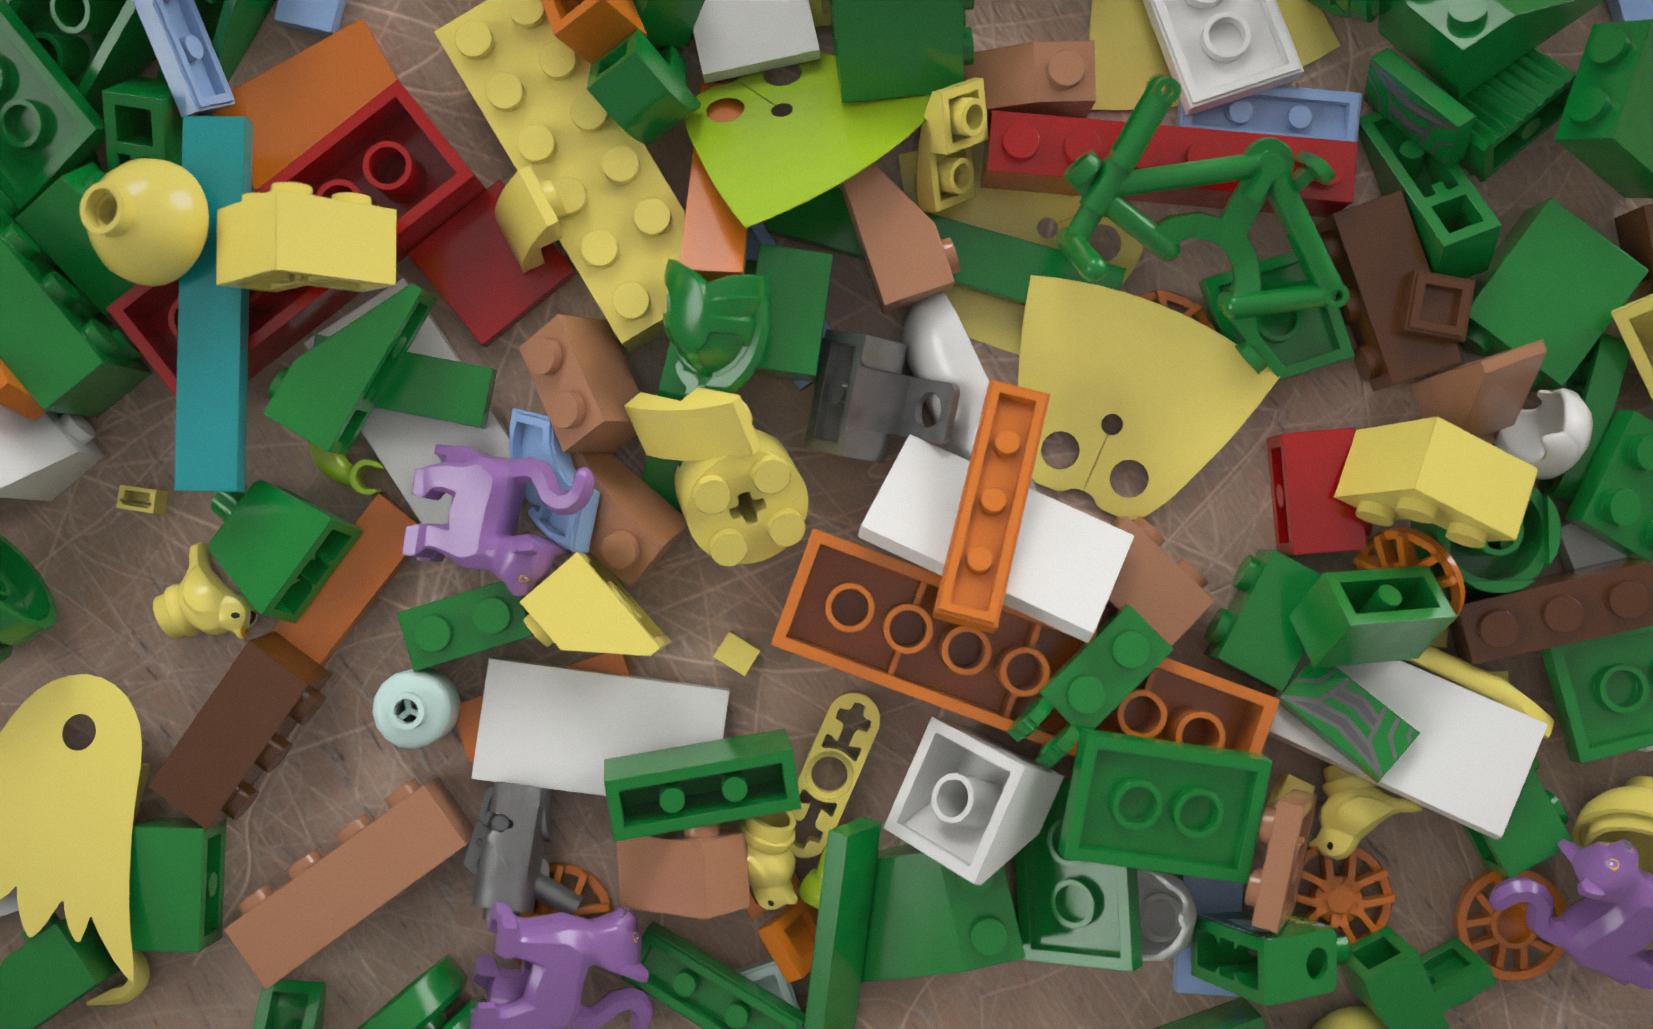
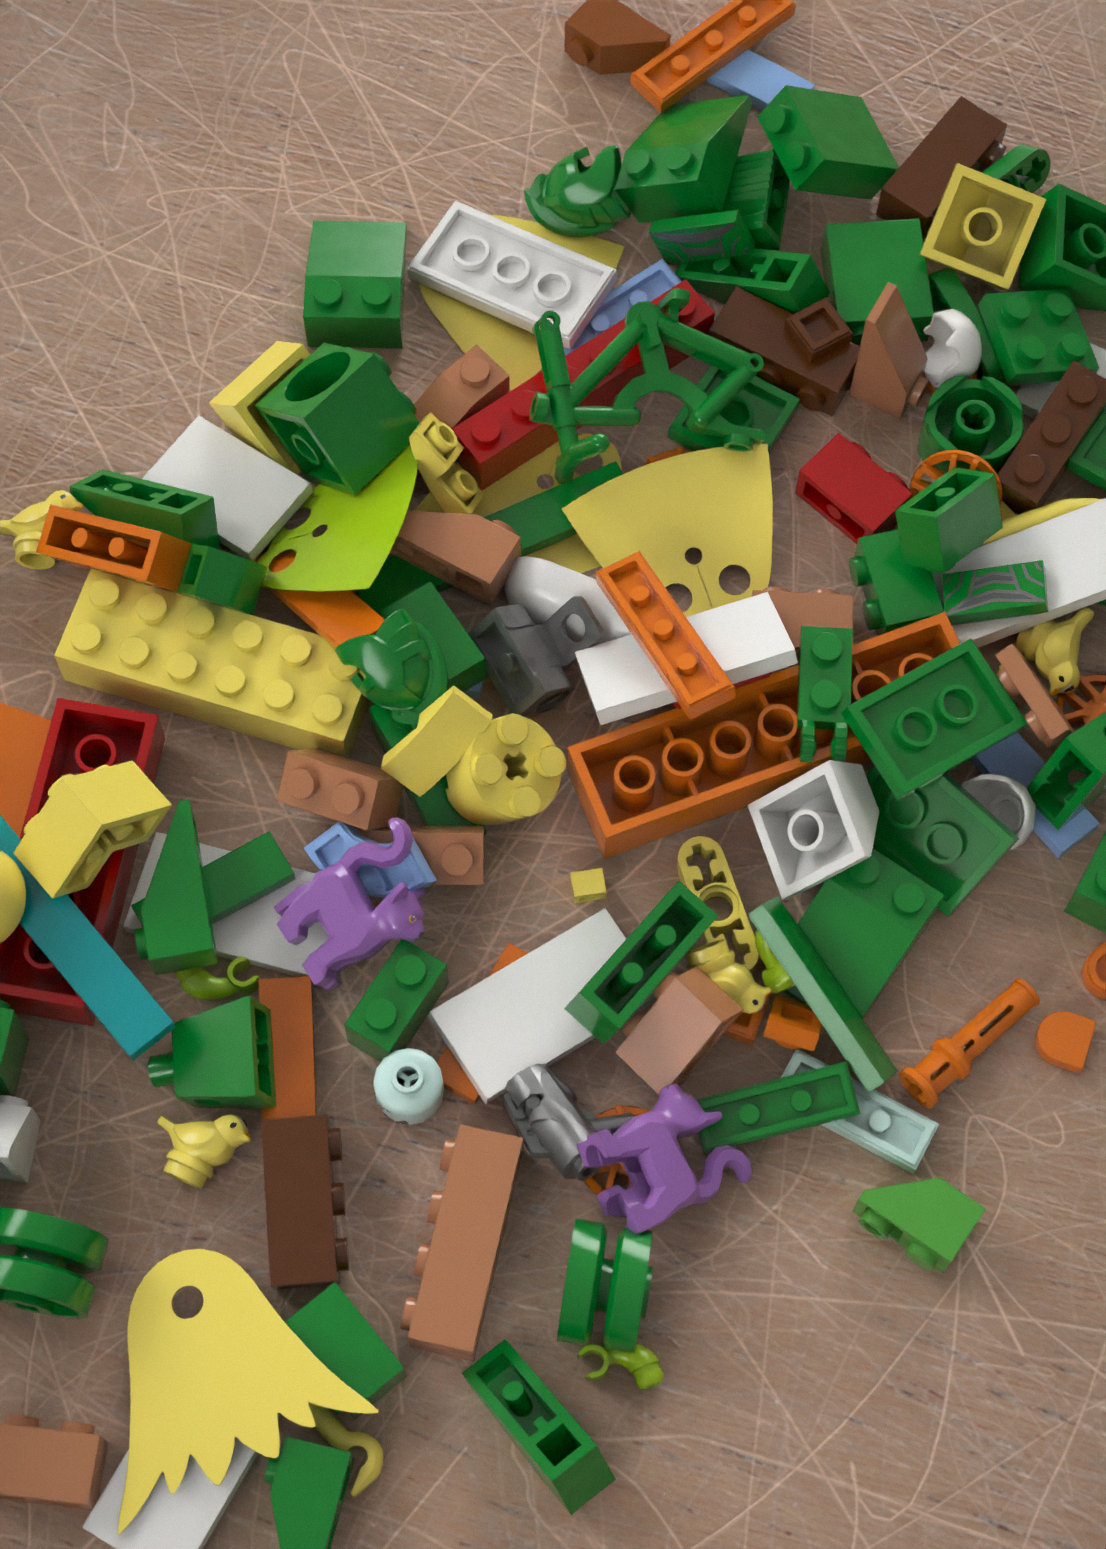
camera: 45 degrees left, 20 degrees down
(142, 499) = (95, 1121): light yellow piece -> none
(479, 273) = (215, 772): red tile -> none
(529, 217) = (216, 713): light yellow slope -> none
(590, 611) = (476, 918): light yellow slope -> none
(1439, 477) = (903, 407): light yellow brick -> none

